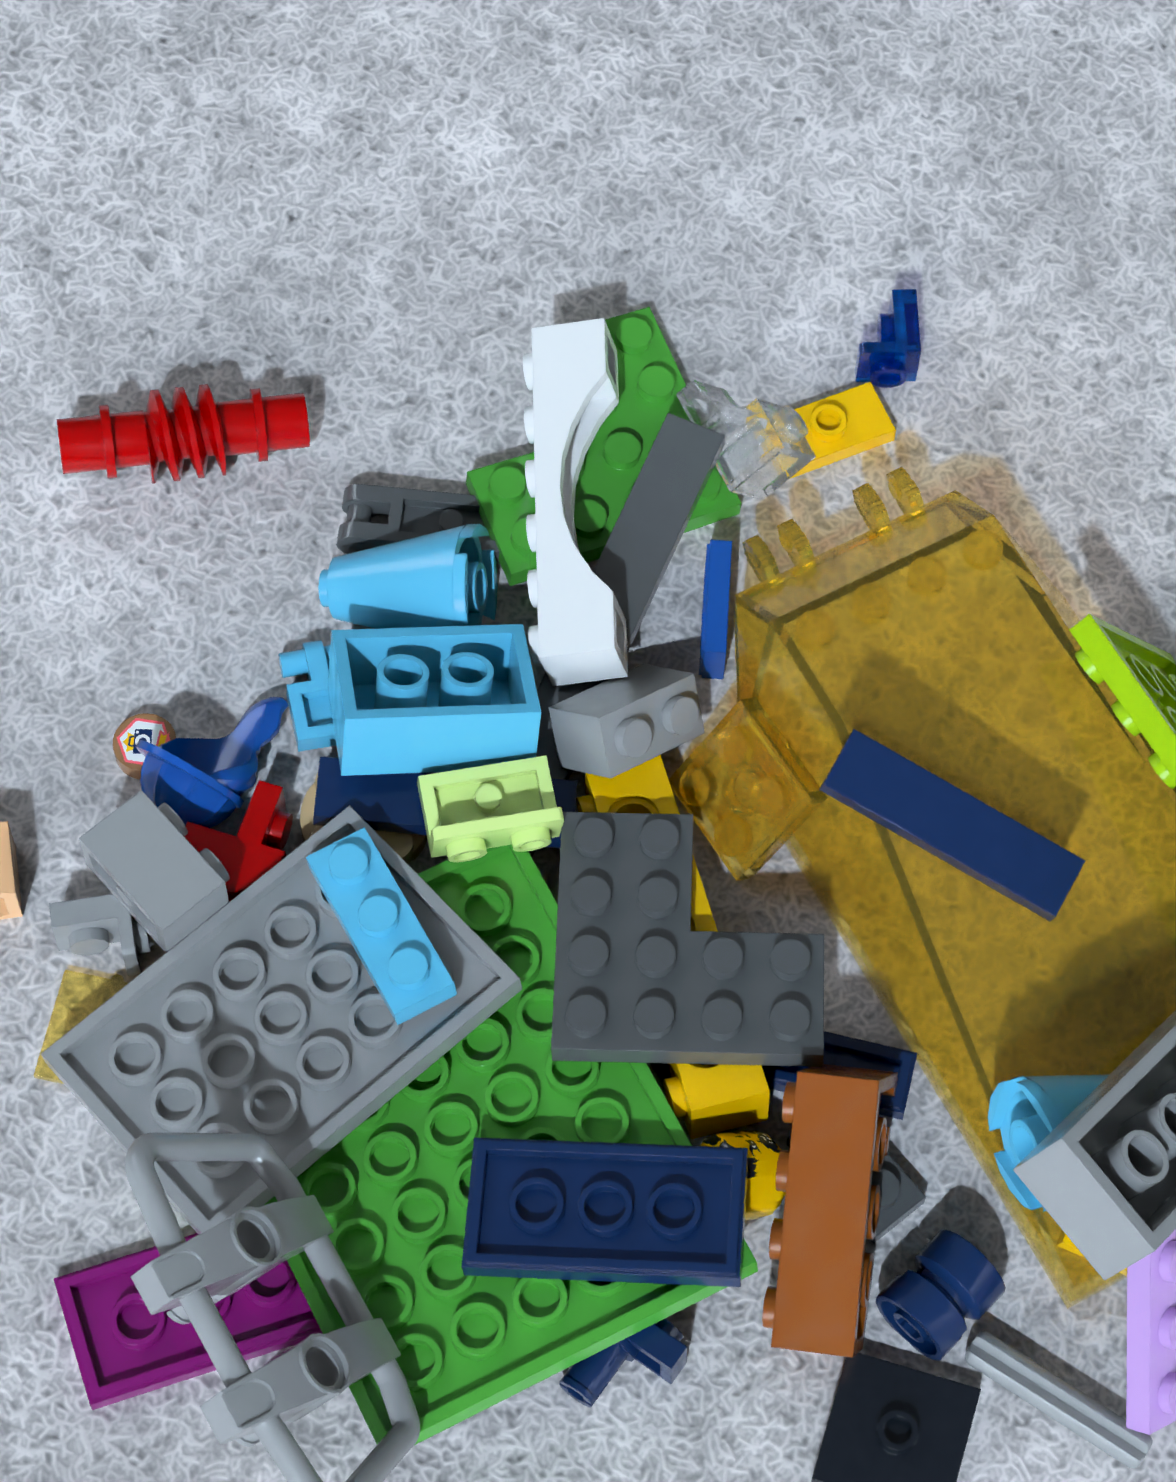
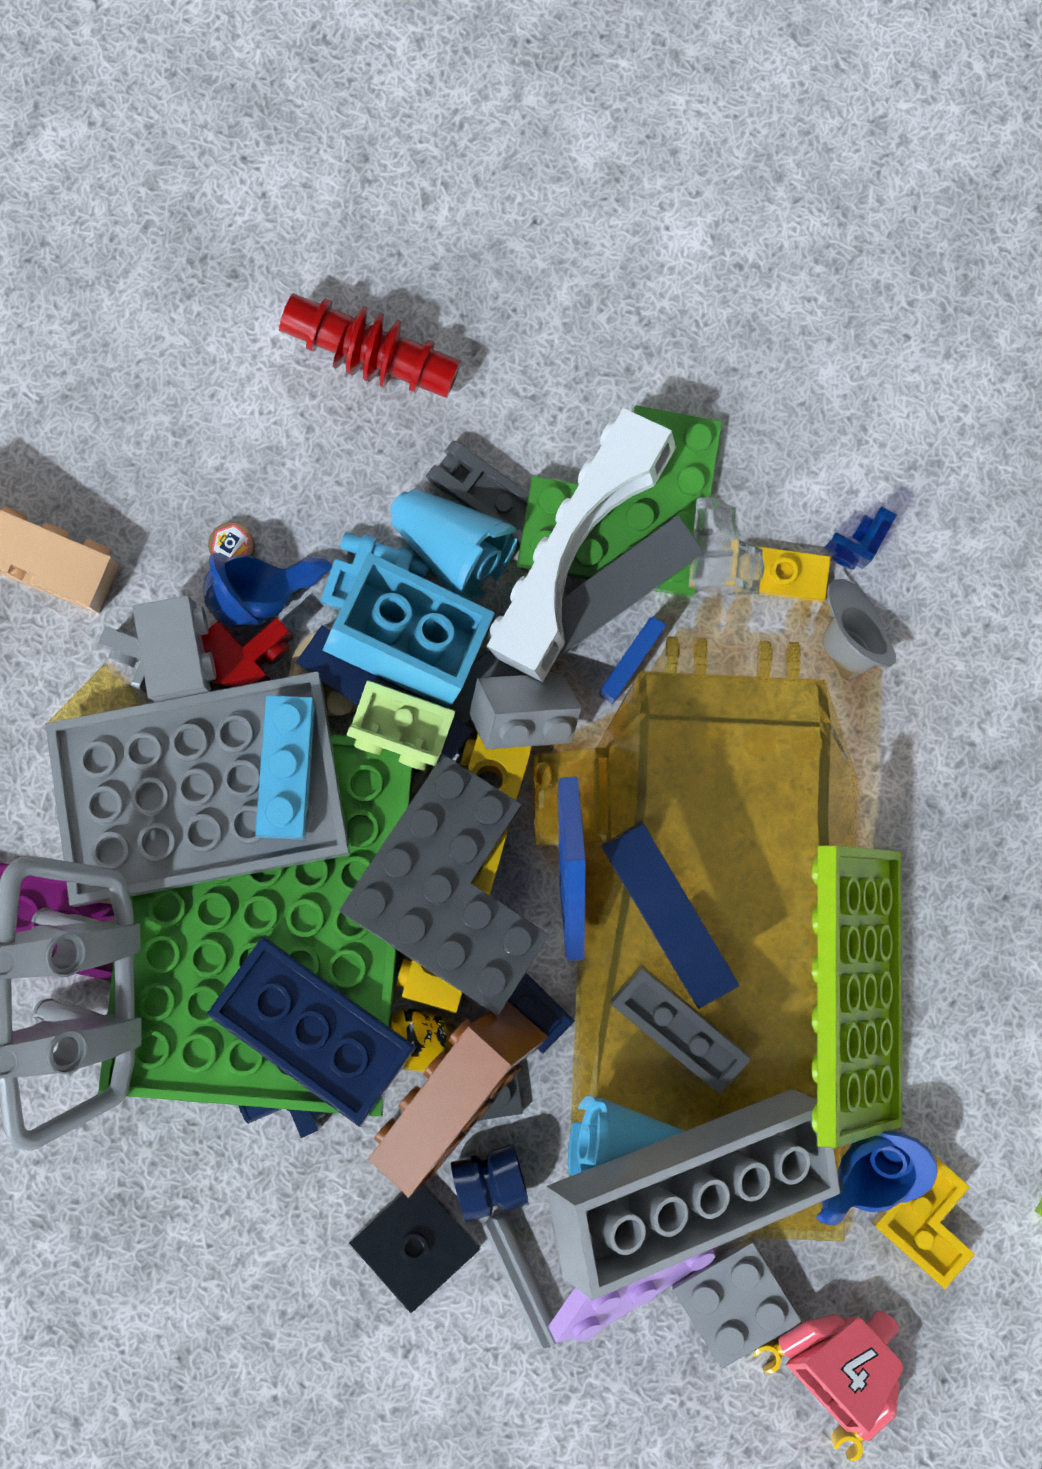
camera: 25 degrees right, 20 degrees up
(804, 836) = (571, 868): none -> blue tile
(954, 448) = (855, 633): none -> light grey piece
(1050, 953) = (680, 1029): none -> dark grey plate

